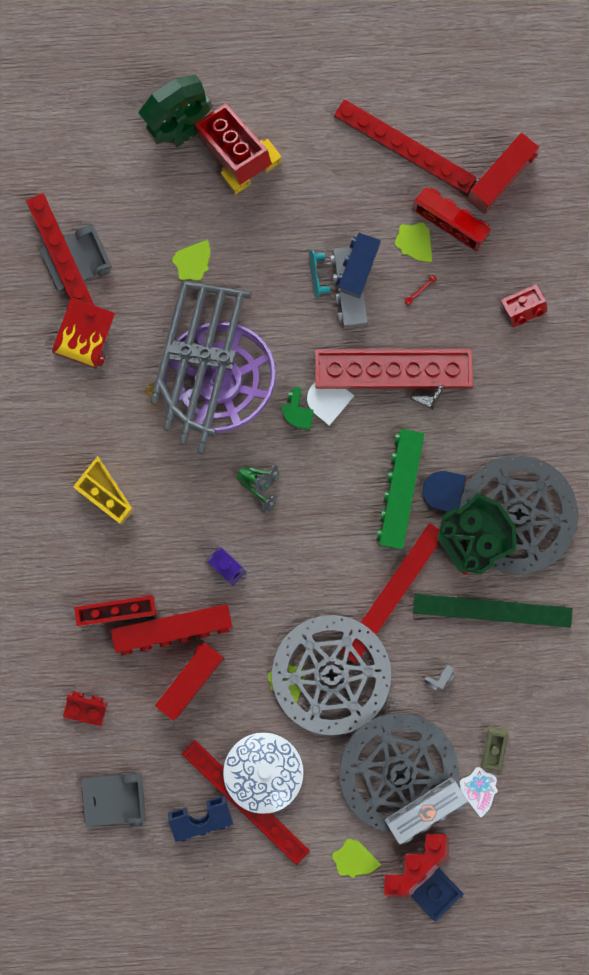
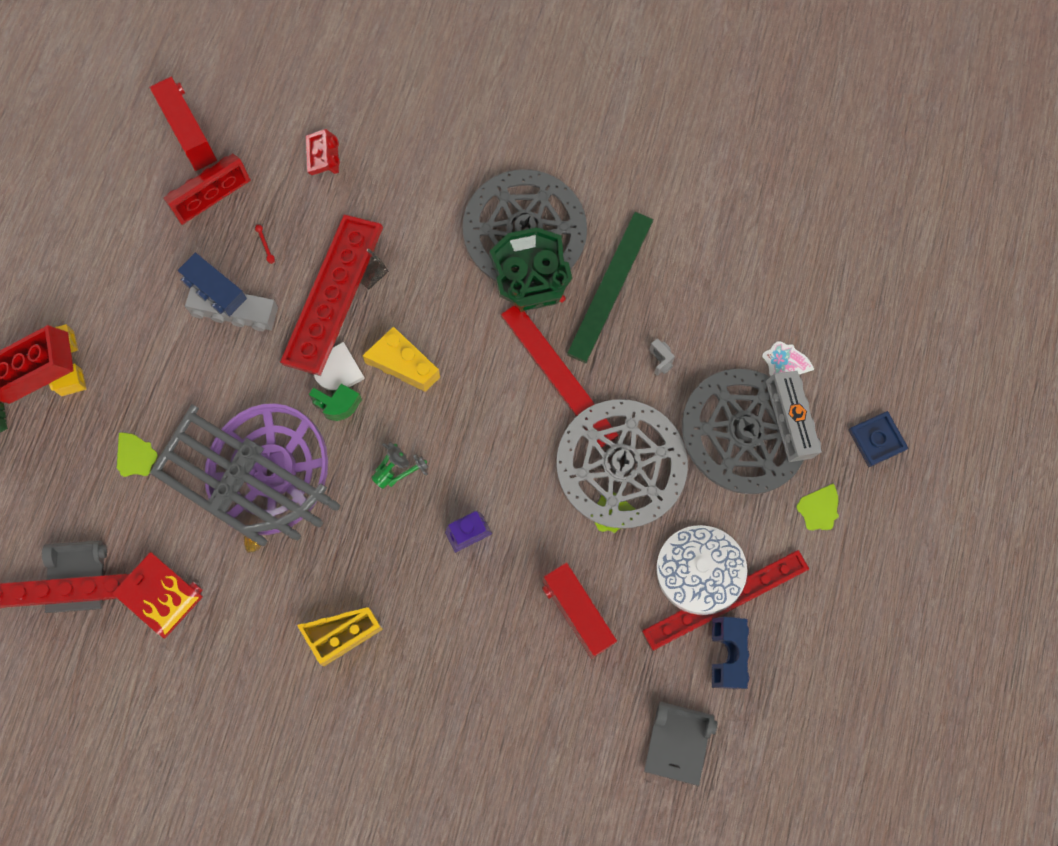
camera: 75 degrees left, 10 degrees down
(85, 709) = (569, 740): red bracket -> none
(115, 611) = (473, 666): red brick -> none
(172, 628) = (514, 613): red brick -> none
(315, 280) = (213, 339): teal piece -> none
(355, 452) = (403, 360): none -> yellow wedge
(401, 489) = (457, 329): green brick -> none
(405, 146) = (114, 209): red plate -> none
(415, 241) = (214, 233): lime sticker -> none
(418, 867) = (849, 443): red brick -> none
(443, 490) = (474, 290): dark blue tile -> none
(494, 748) = (749, 331): olive slope -> none

